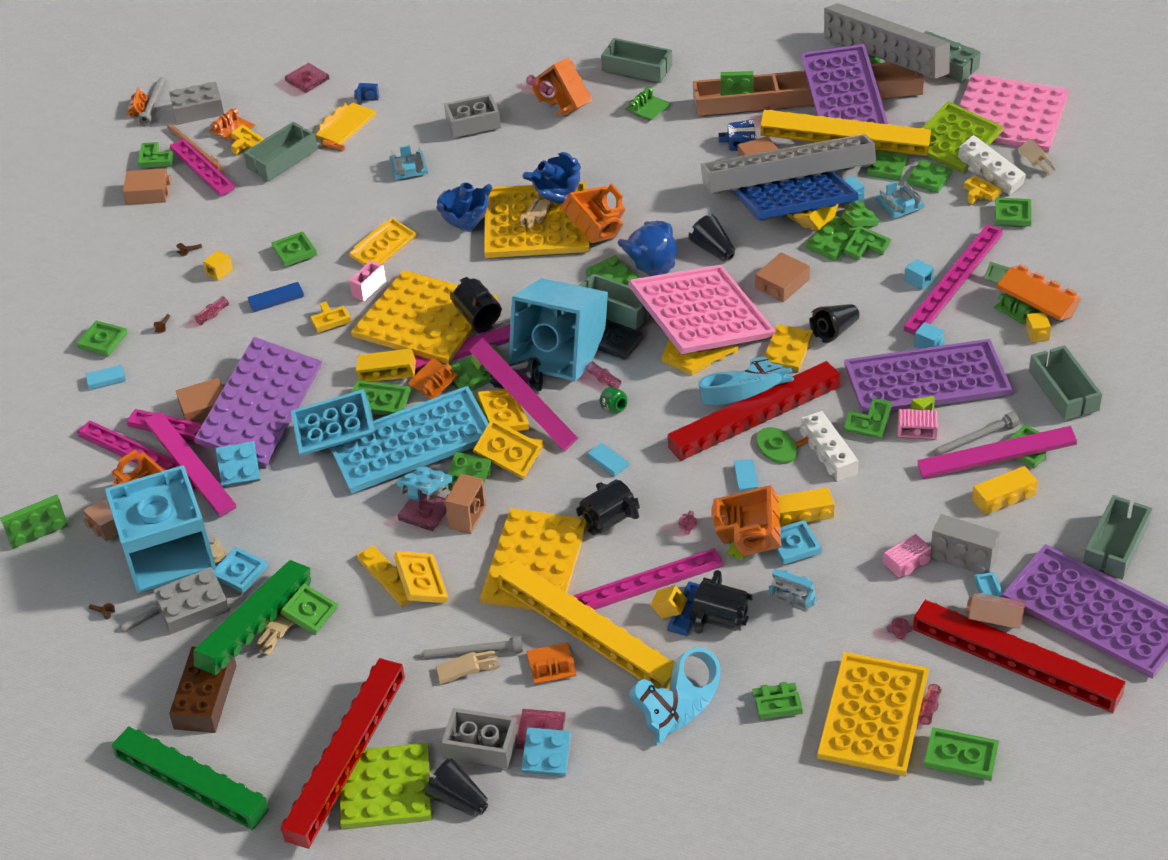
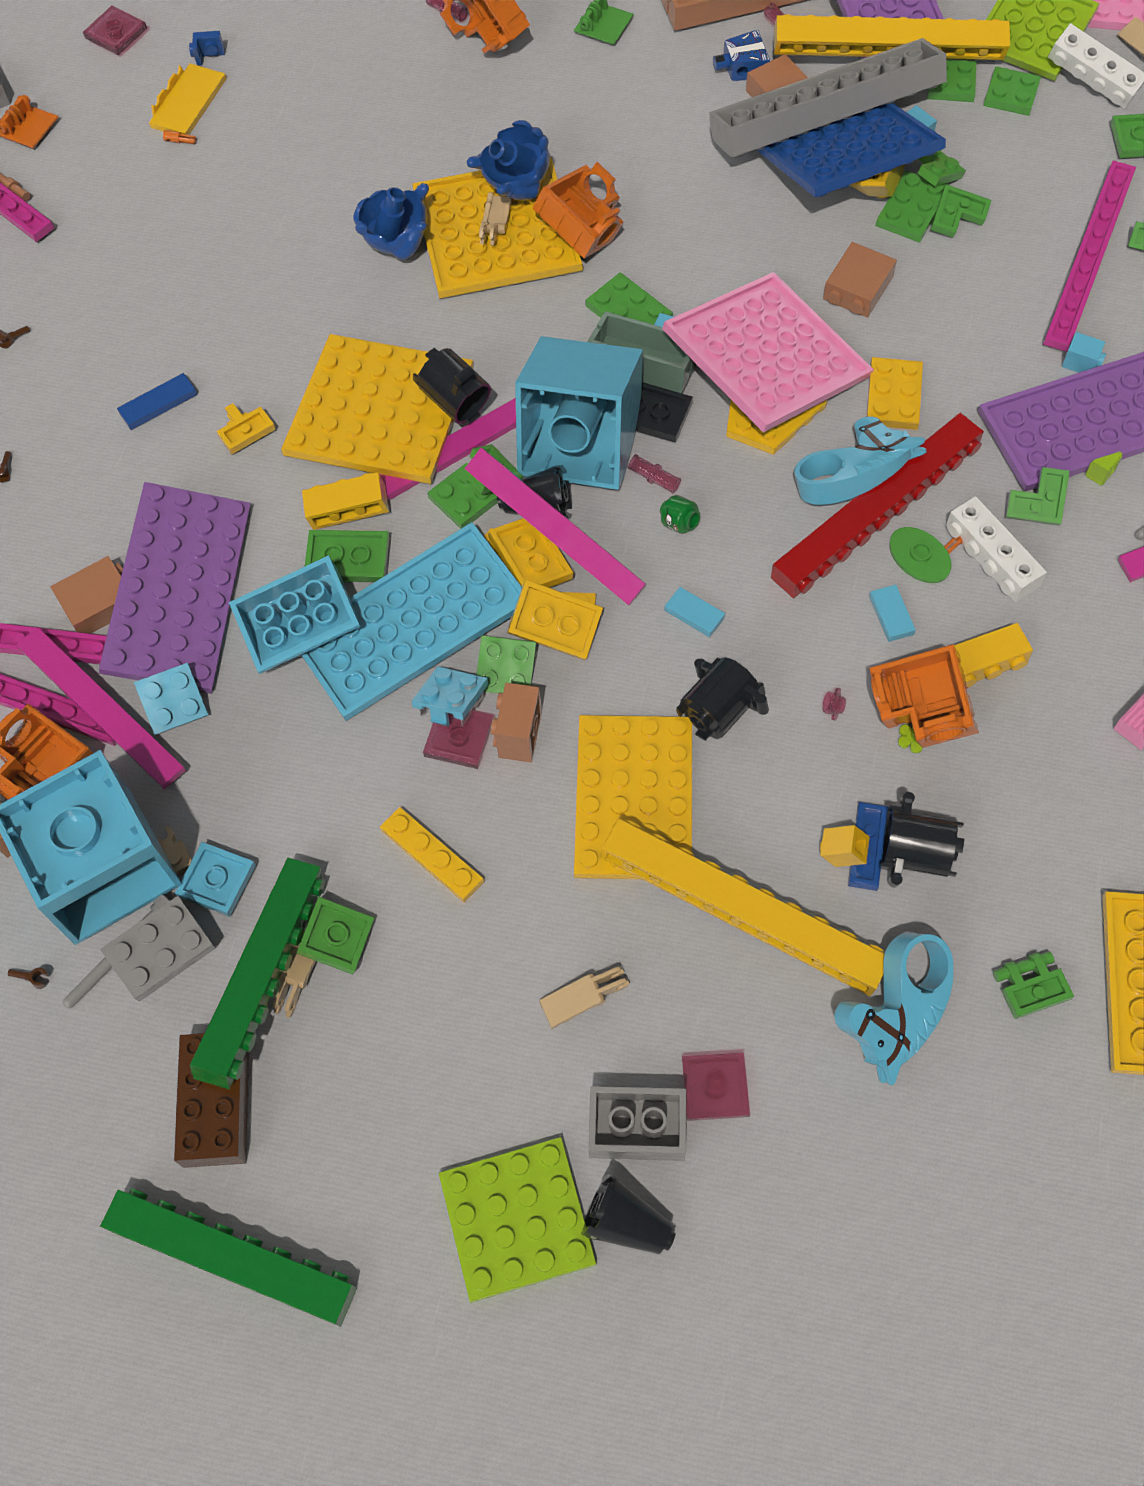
camera: 10 degrees left, 20 degrees up
(211, 310) = (70, 437): clear pink pin -> none
(218, 265) = (61, 360): yellow brick -> none
(244, 139) = (52, 144): yellow hinge -> none
(280, 151) = (107, 158): sand green piece -> none
(294, 249) = (164, 318): bright green plate -> none
(342, 754) = (447, 1189): red brick -> none
(367, 280) = (284, 360): bright pink brick -> none
(382, 243) = (288, 294): yellow piece -> none
(408, 164) = (293, 157): medium azure piece -> none
(420, 577) = (482, 856): yellow plate -> none
(433, 378) = (416, 512): orange hinge -> none
(472, 115) = (366, 67): light grey brick -> none
(514, 644) = (641, 947): light grey piece -> none
(546, 751) = (735, 1127): medium azure plate -> none
(551, 663) = (701, 969): orange hinge -> none
(651, 579) = (800, 808): dark pink tile -> none
(652, 247) = (674, 257): blue piece -> none
(712, 238) = (752, 230): black cone -> none
(793, 588) = (1014, 801): piece -> none
(797, 543) = (995, 715): medium azure plate -> none
(832, 321) = (949, 345): black cone -> none
(899, 201) = (985, 135): piece -> none
(917, 423) = (1104, 496): bright pink brick -> none
(919, 274) = (1042, 251): medium azure brick -> none
(981, 189) = (1088, 105): yellow hinge -> none

